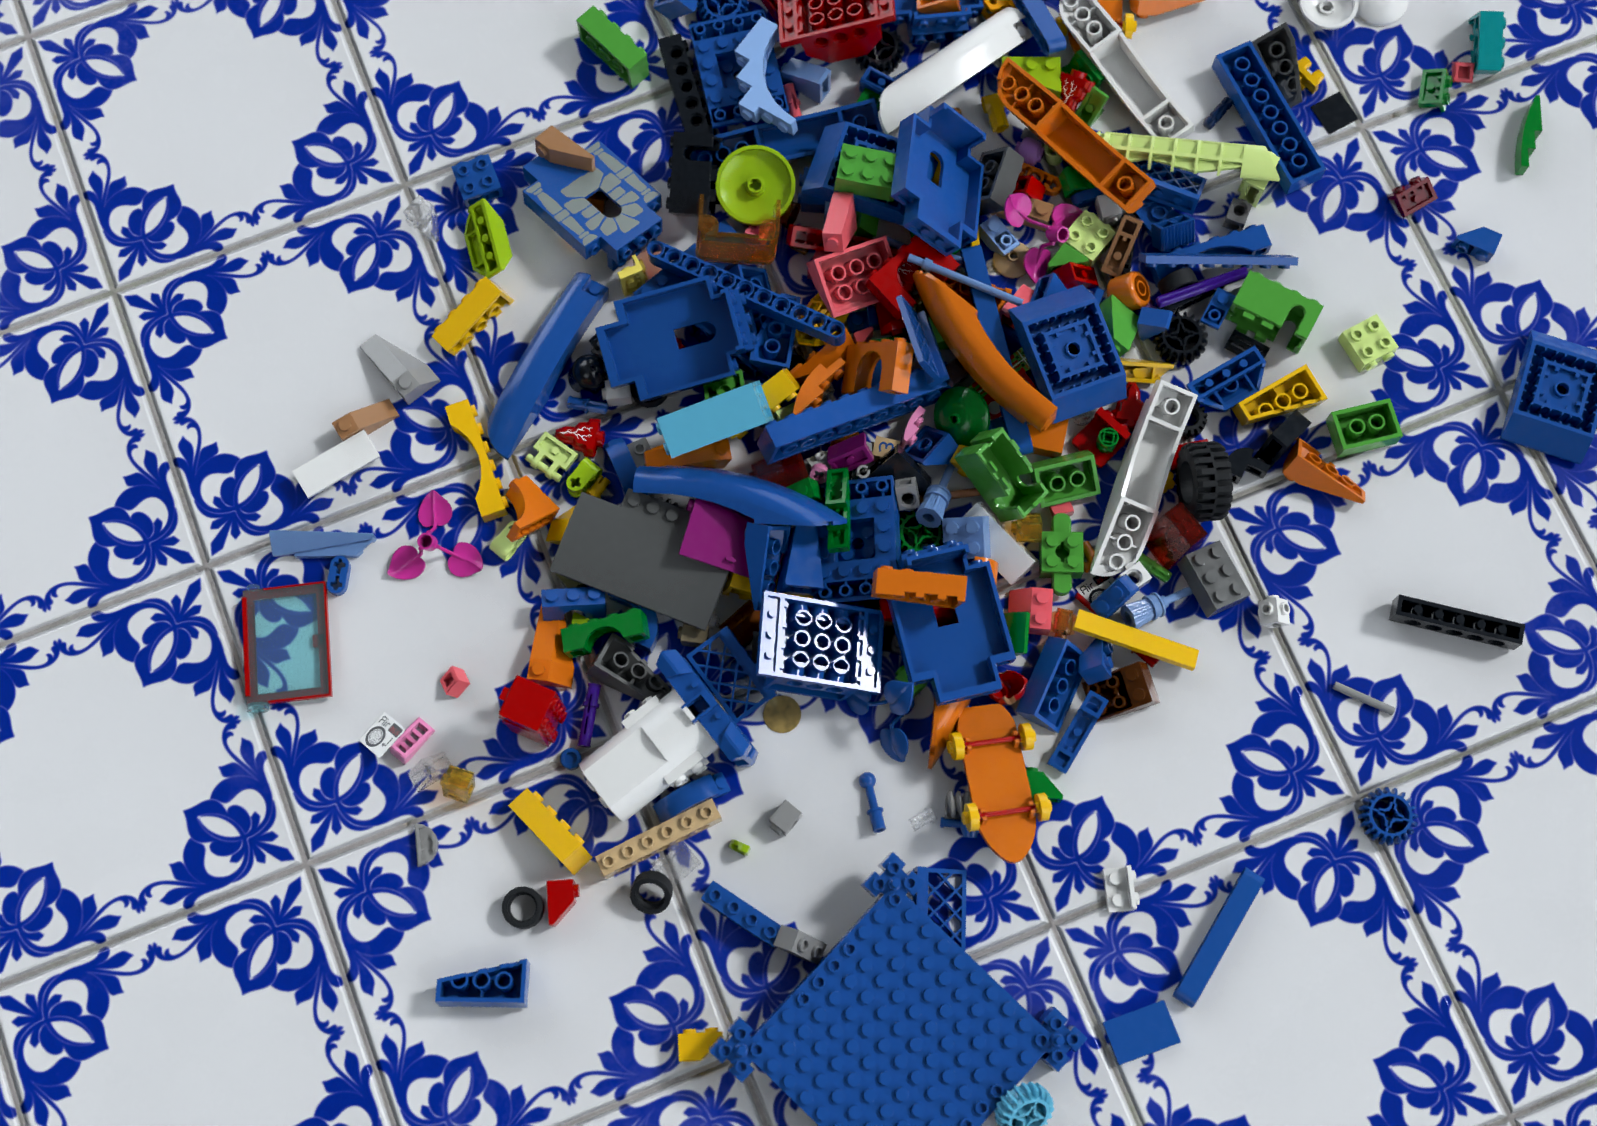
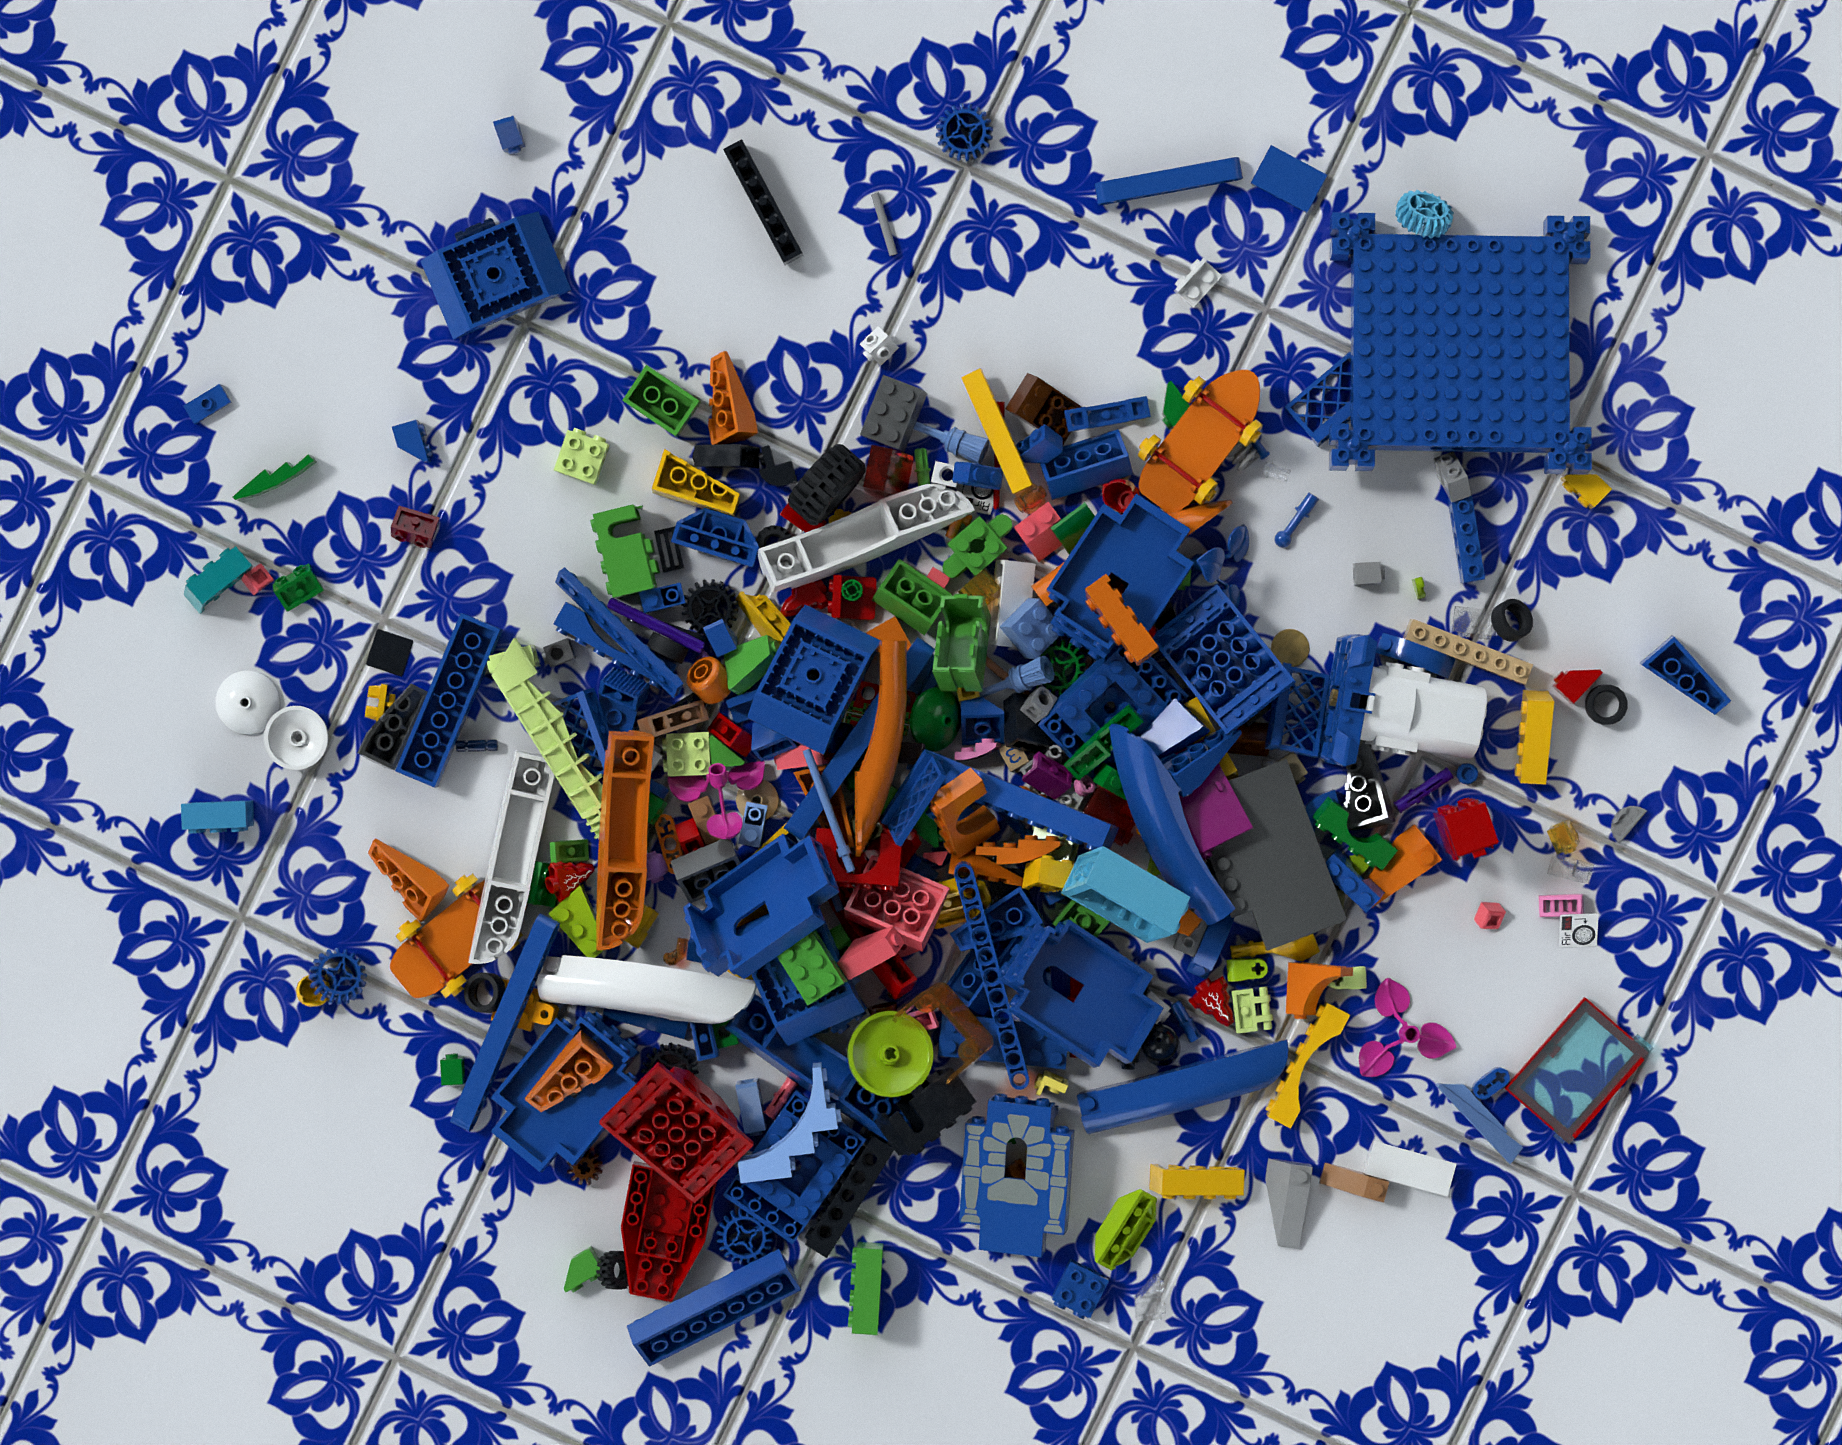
camera: 135 degrees left, 15 degrees up
(562, 150) = (1001, 1241): medium nougat slope -> none

